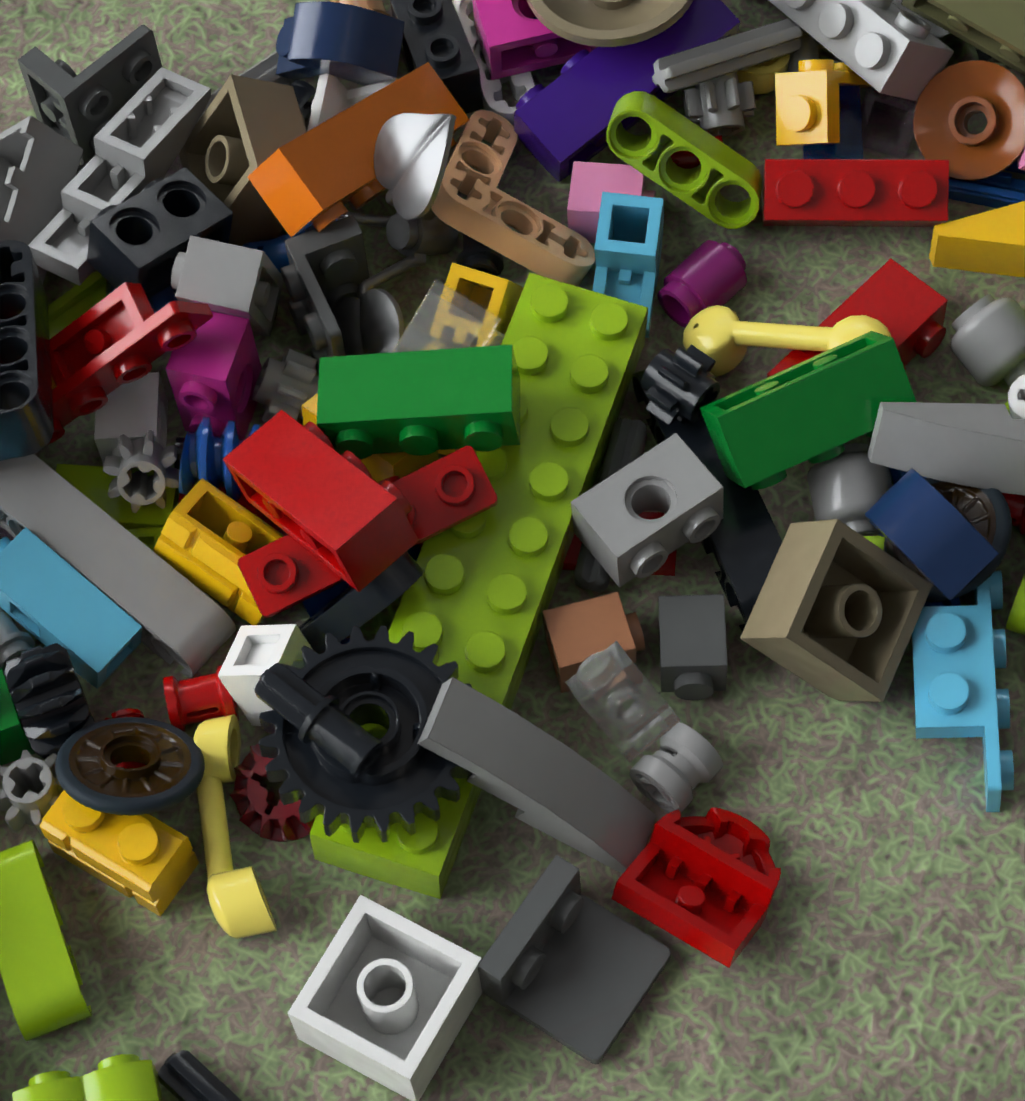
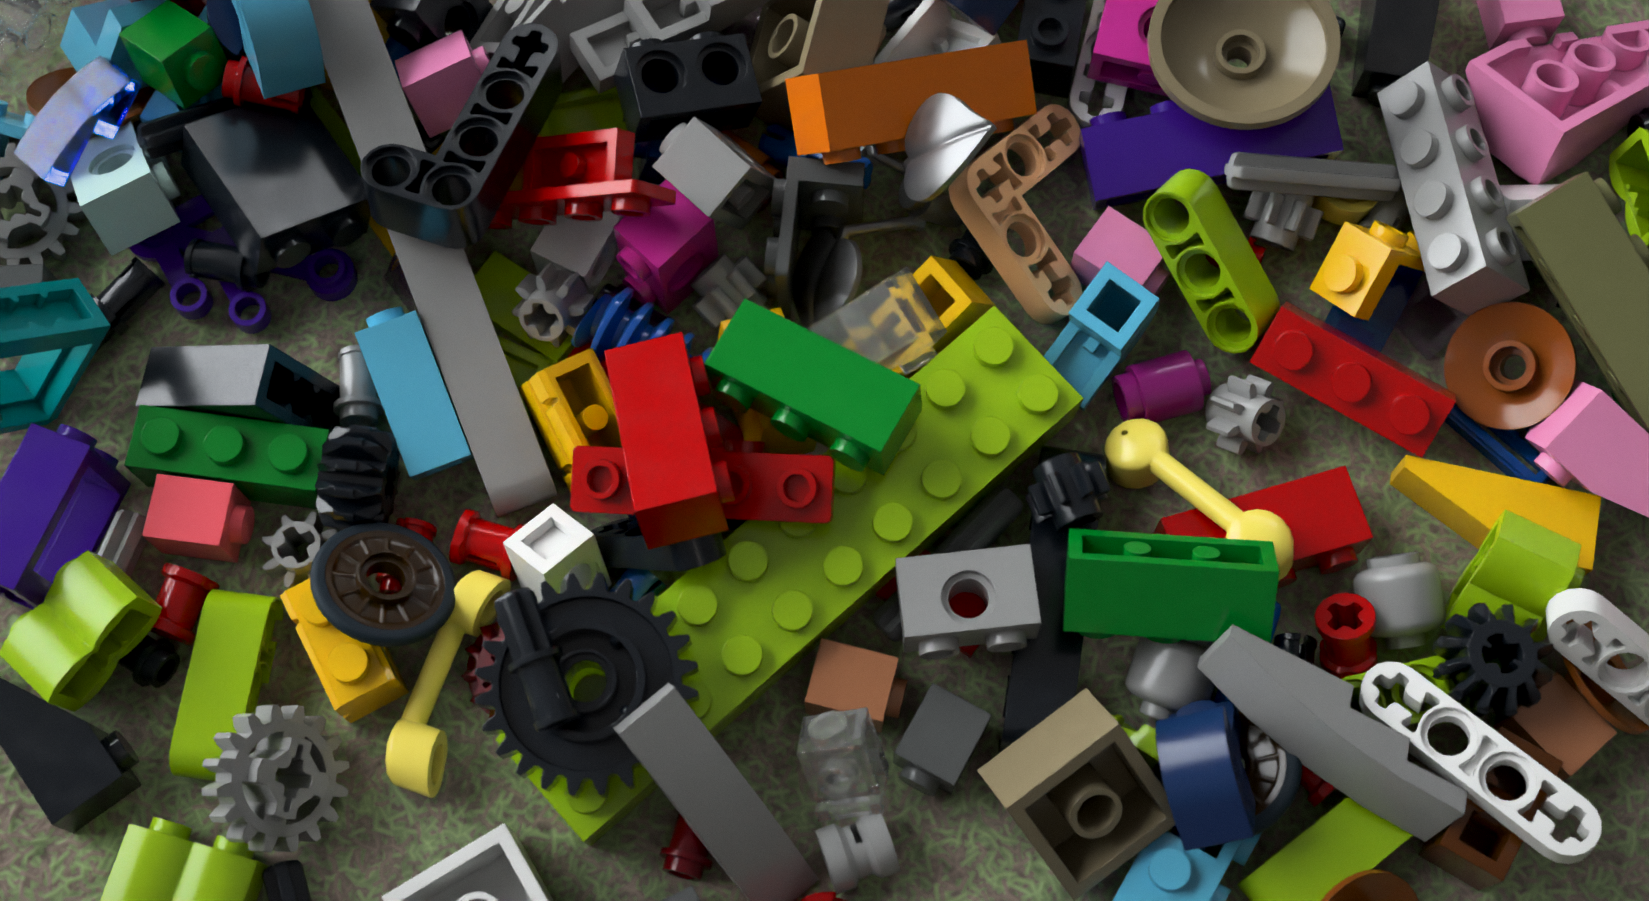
camera: 25 degrees right, 10 degrees up
(131, 985) = (246, 786): none -> light grey gear
(527, 846) = (686, 853): none -> dark red pin
(784, 266) = (1245, 414): none -> light grey gear
(966, 385) = (1346, 630): none -> red bush

